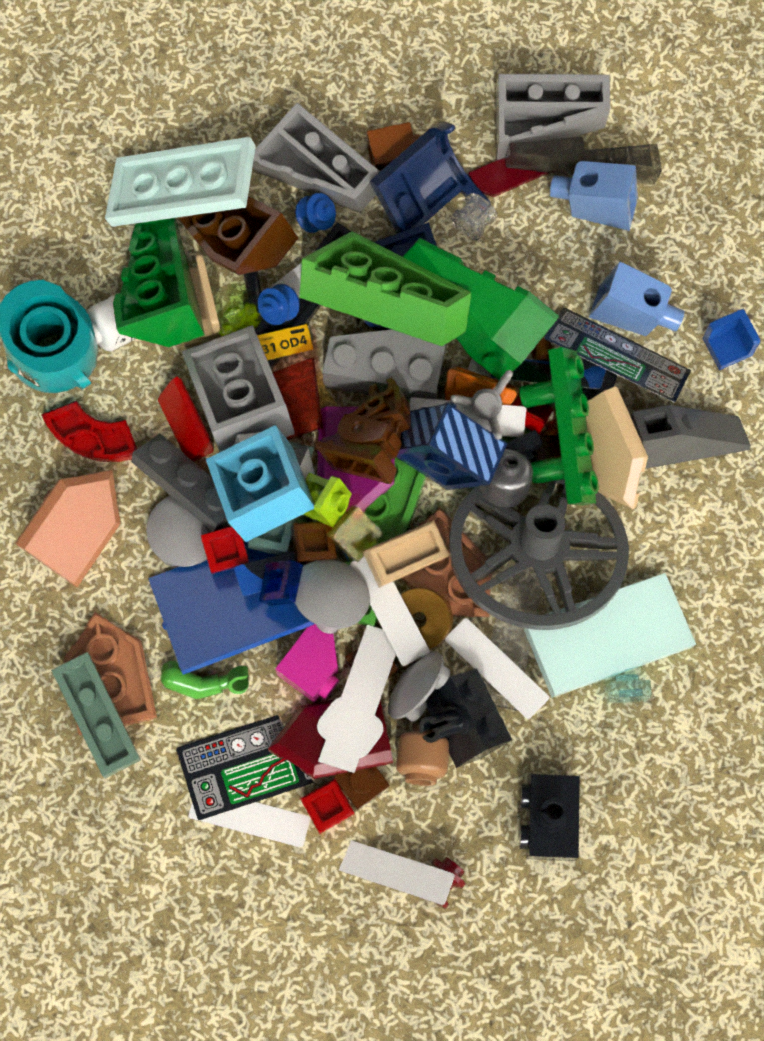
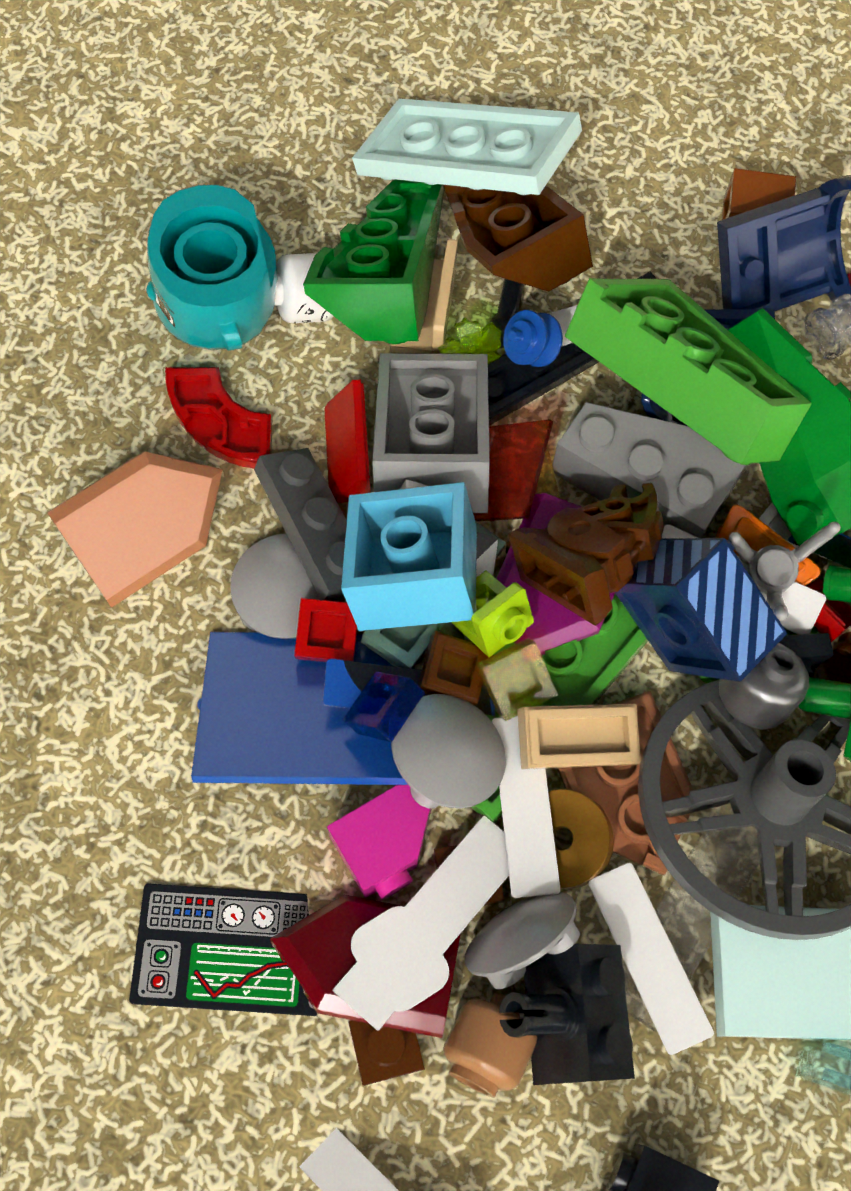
camera: 20 degrees right, 5 degrees down
(96, 715) = (49, 793): sand green plate -> none
(121, 667) = (94, 748): nougat tile -> none
(202, 687) = (215, 811): bright green arm -> none
(263, 822) = (221, 1046): white sticker -> none
(286, 342) = (523, 394): yellow sticker -> none
(315, 160) = (651, 183): light grey wedge -> none
(315, 213) = (626, 248): blue wheel -> none
(327, 806) = (321, 1061): red tile -> none

